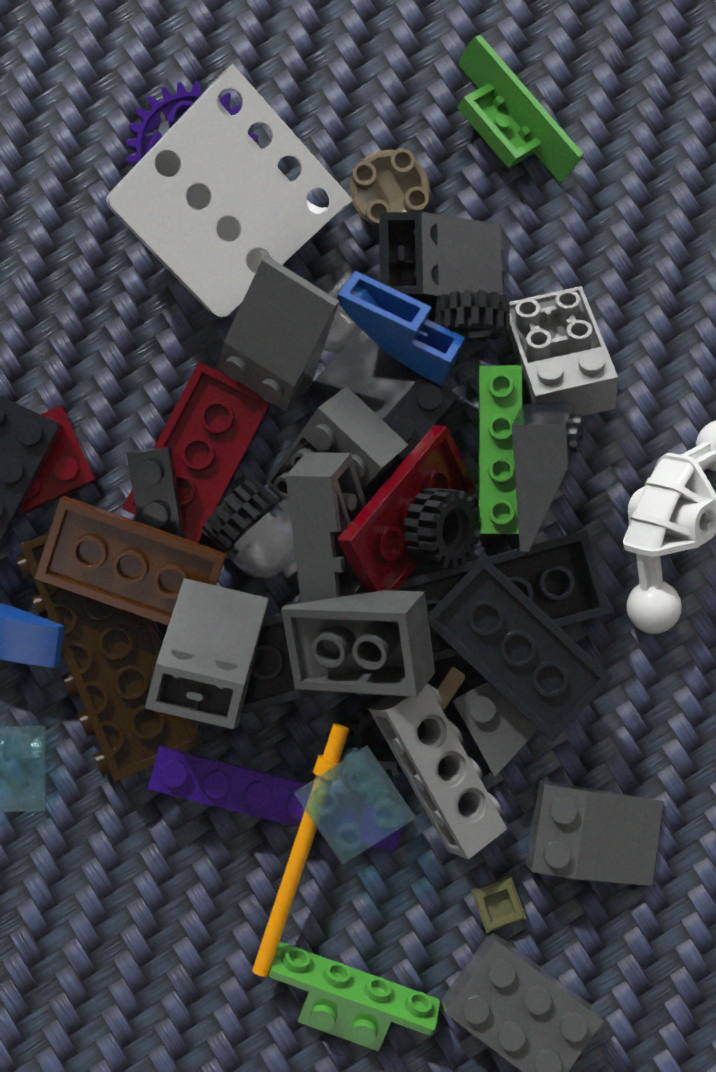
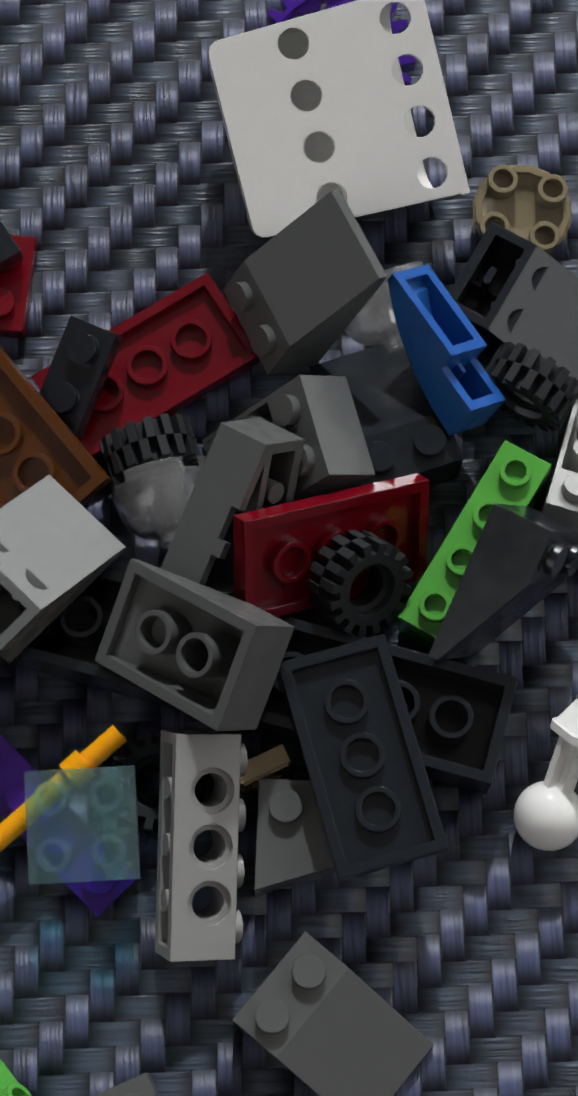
camera: 30 degrees right, 10 degrees down
(498, 904) = (175, 1047): olive tile -> none

